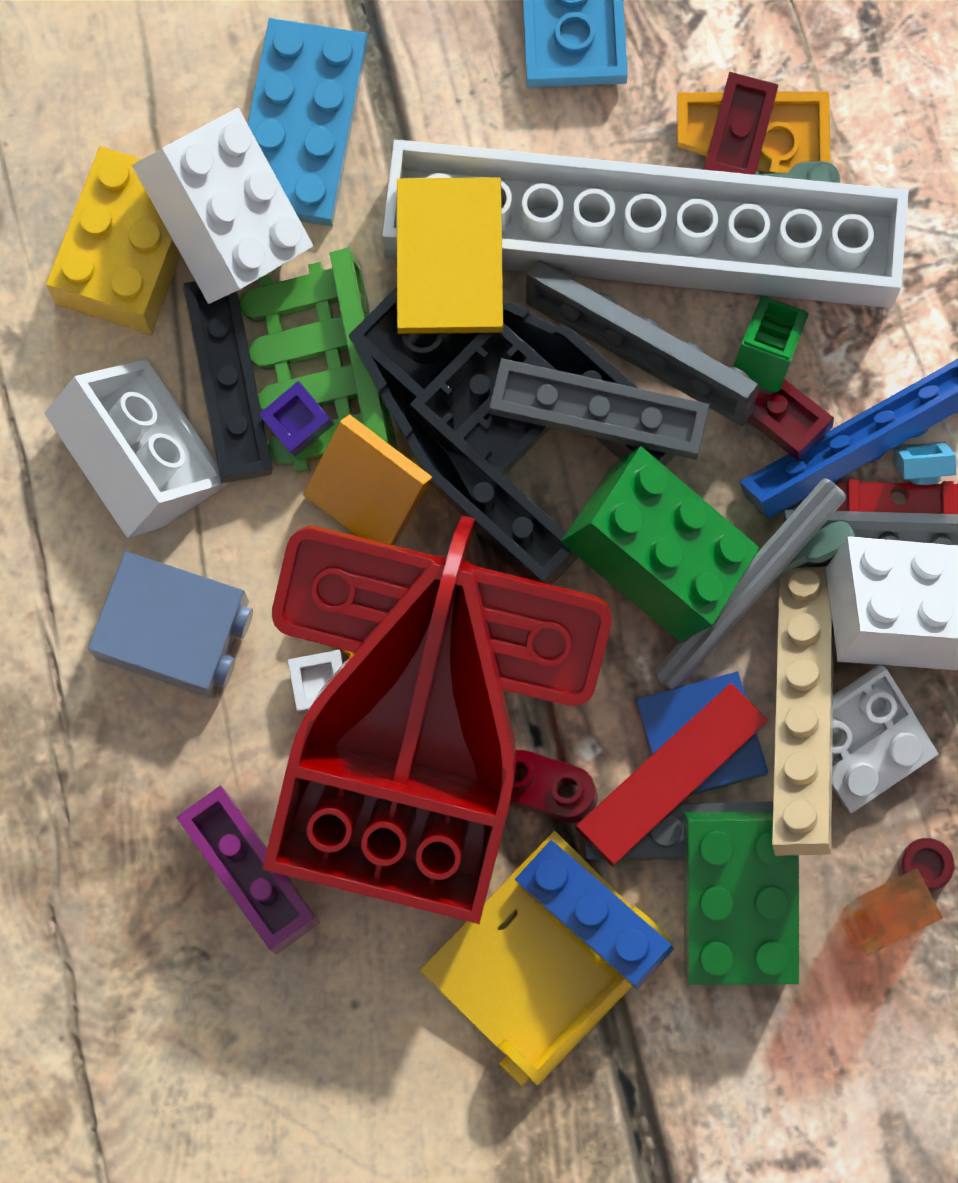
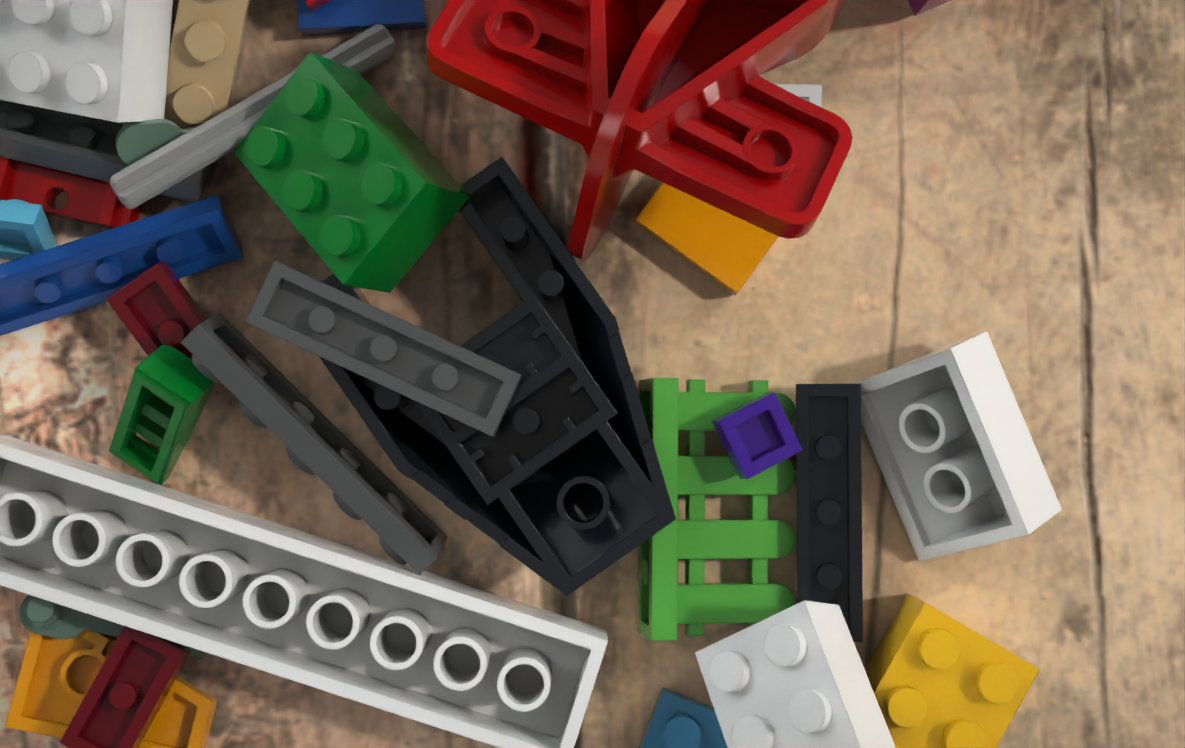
camera: 175 degrees left, 10 degrees up
(171, 625) = (951, 218): sand blue brick -> none
(366, 483) = (687, 333): light orange tile -> none
(449, 255) = (528, 595): yellow tile -> none

